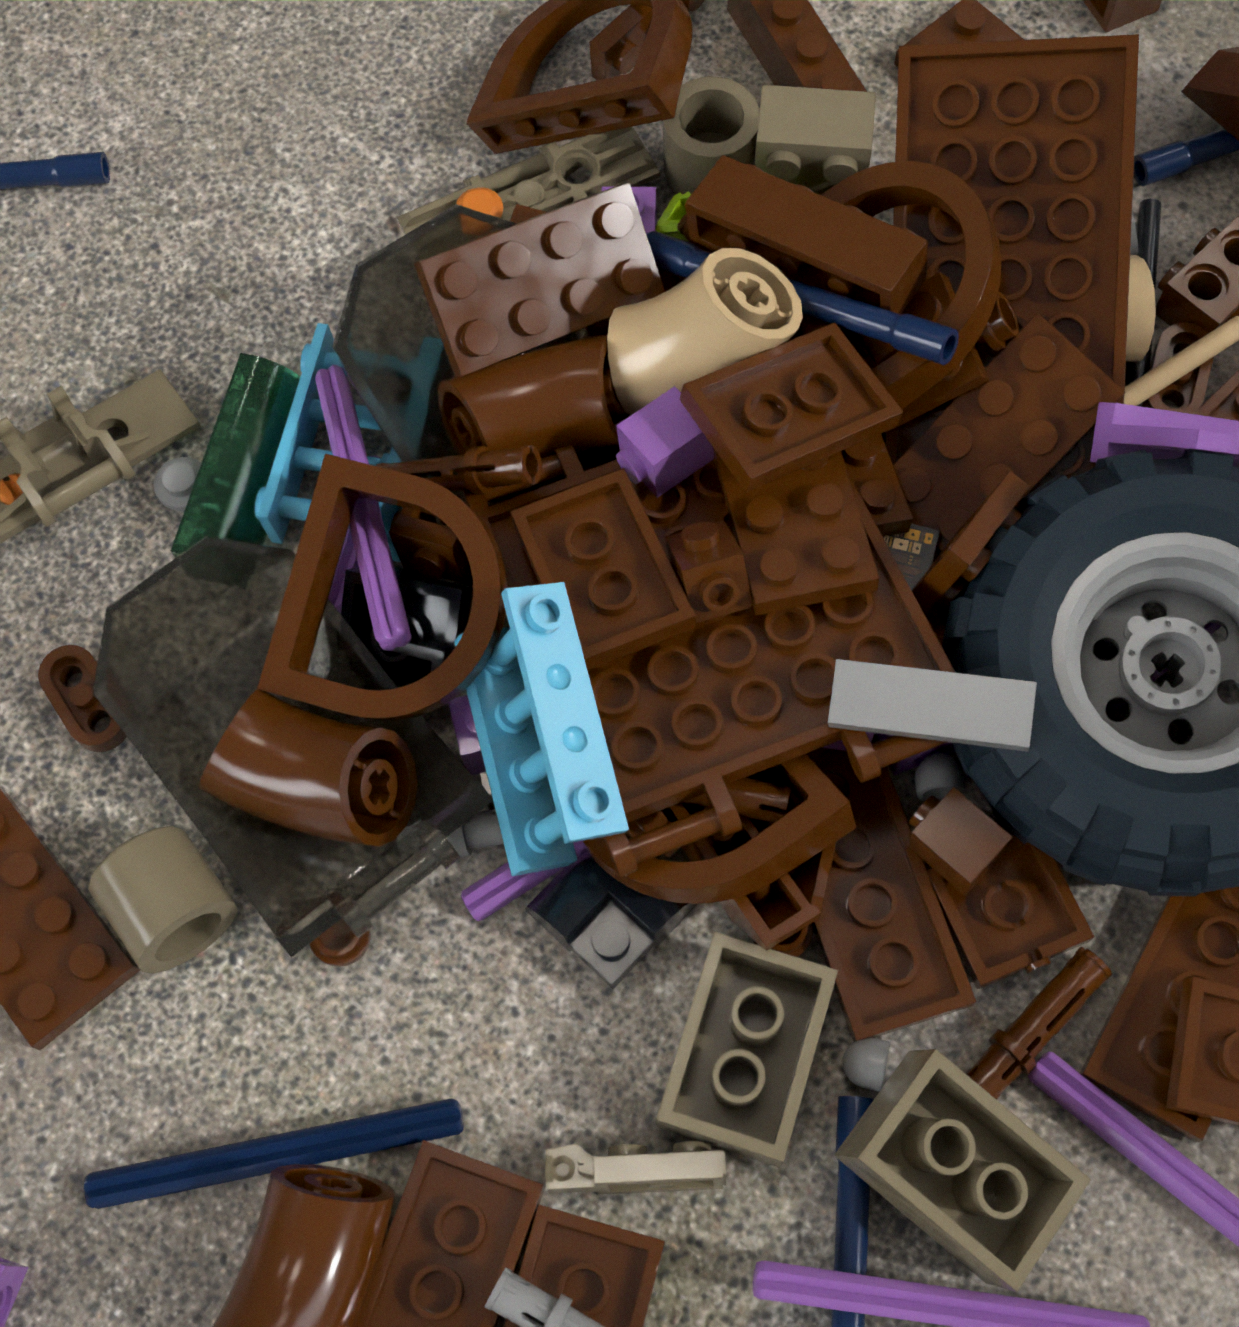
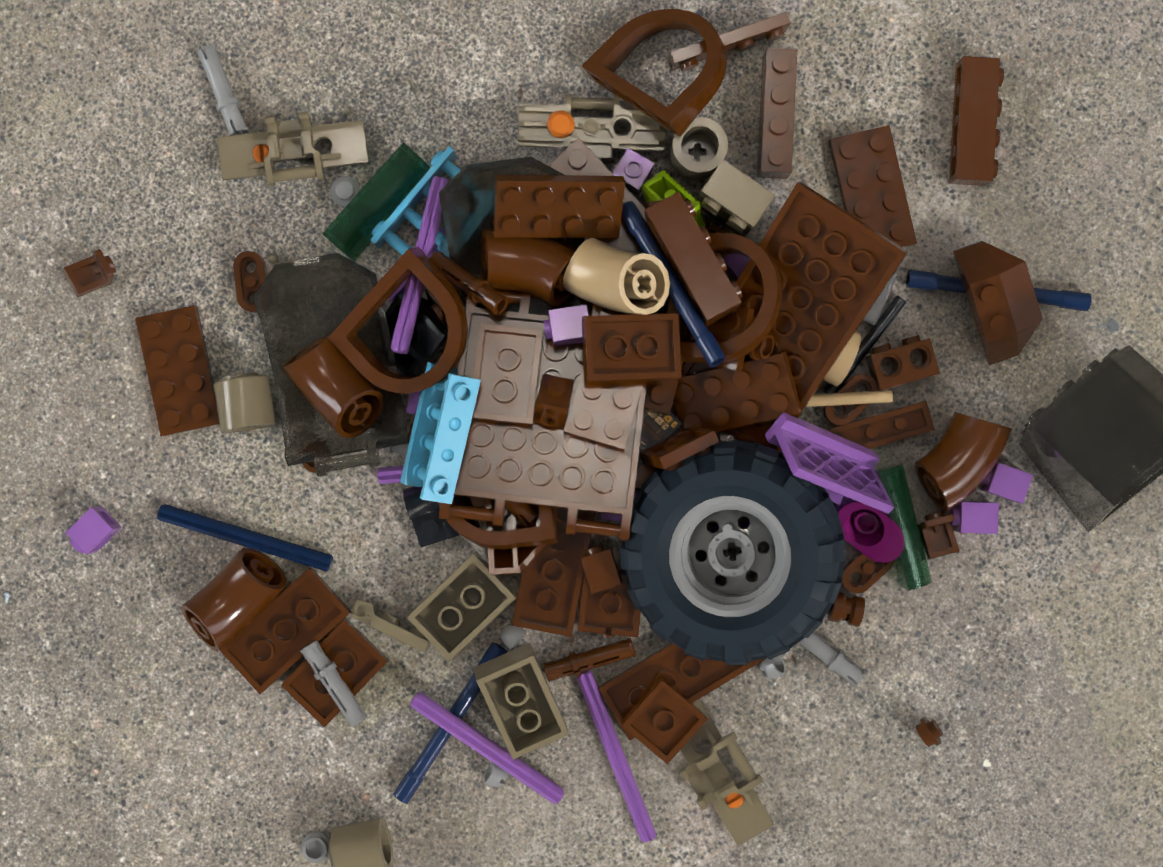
camera: 20 degrees right, 20 degrees up
(932, 705) = (609, 522): light grey tile -> none

